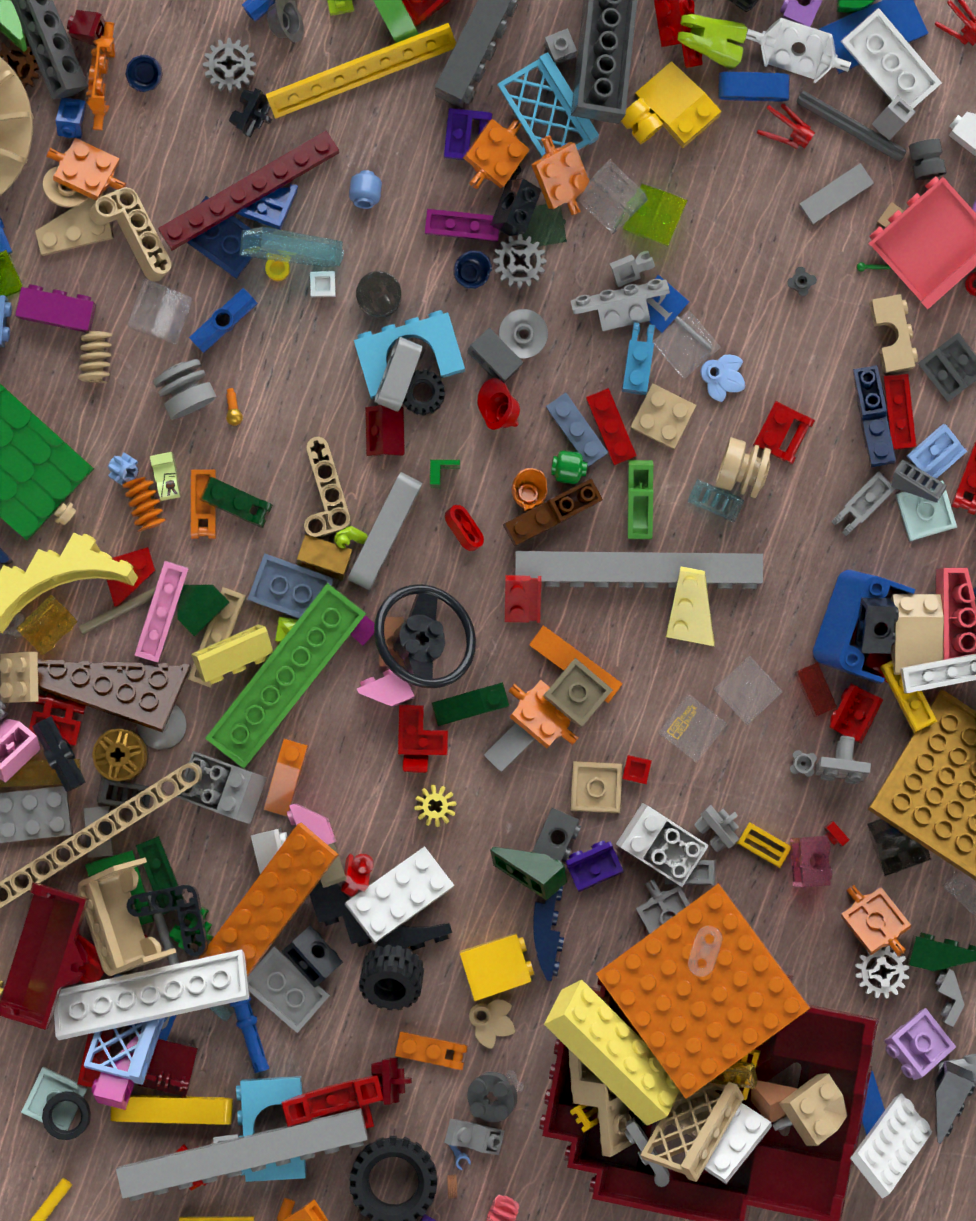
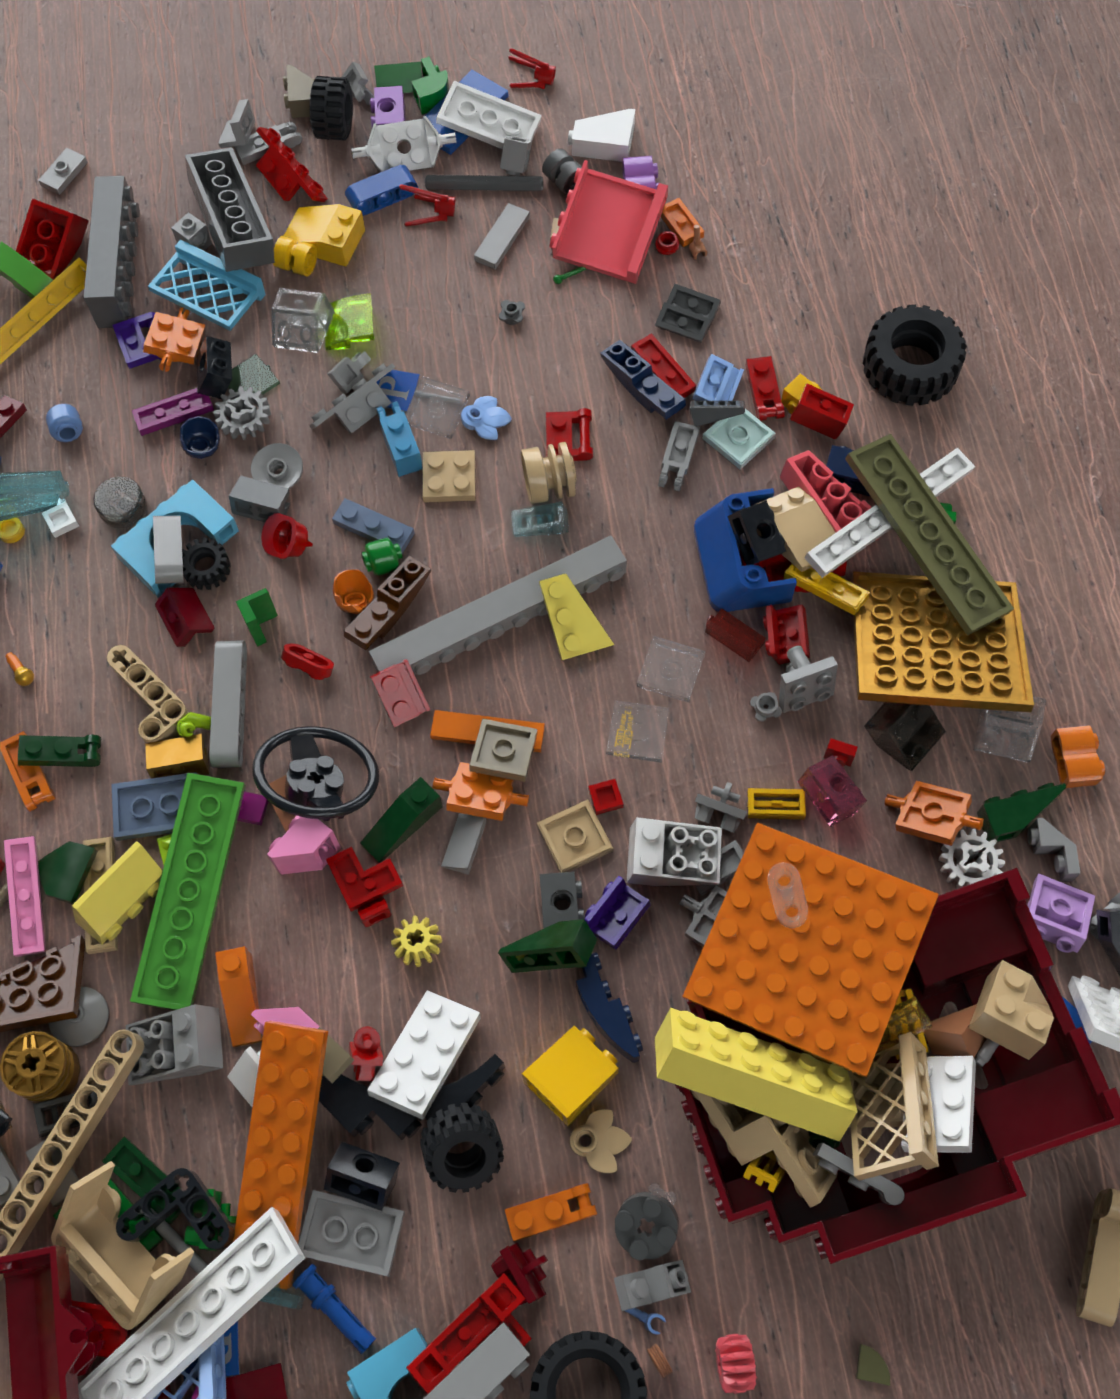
camera: 25 degrees left, 20 degrees down
(561, 175) = (242, 324): orange plate -> none
(611, 426) = (404, 507): red plate -> none
(640, 499) = (467, 552): bright green slope -> none
(714, 38) = (328, 165): lime piece -> none
(891, 312) = (607, 297): tan arch -> none

